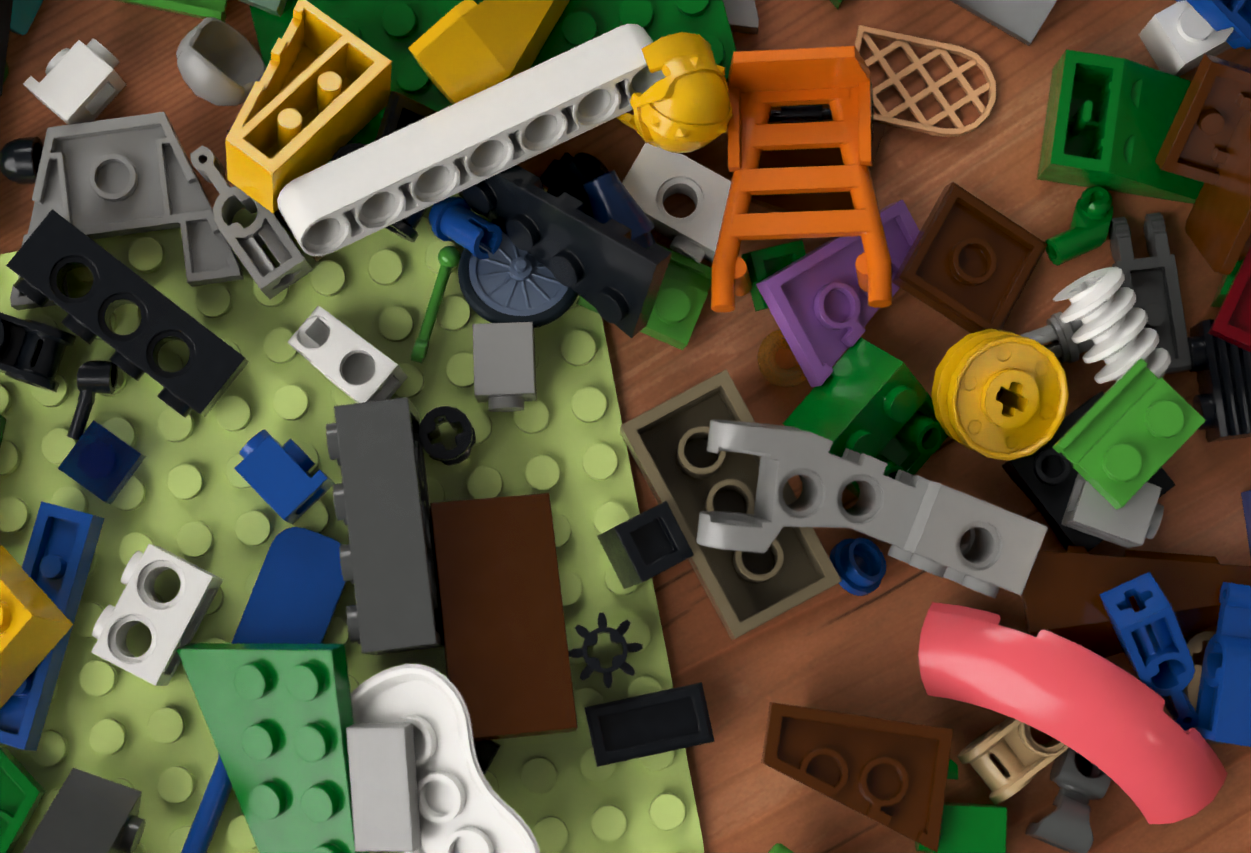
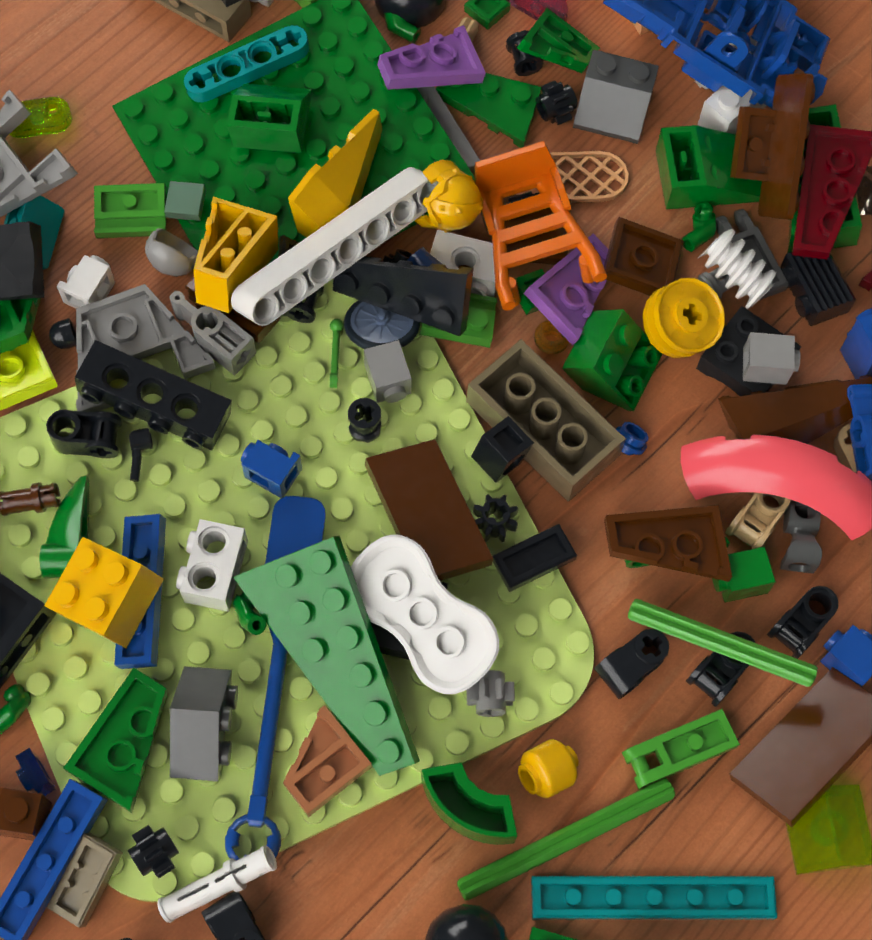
camera: 15 degrees left, 15 degrees down
(102, 462) = (155, 489): clear blue plate -> none
(189, 719) = (247, 617): none -> green arm
(347, 358) = (293, 393): white leg -> none
(384, 787) = (386, 615): light grey tile -> none
(388, 526) = (343, 471): dark grey brick -> none
(455, 221) = (335, 302): blue pin -> none
(920, 518) = (662, 395): light grey brick -> none
(1129, 434) = (766, 310): bright green plate -> none
(1153, 643) = (817, 424): blue piece -> none

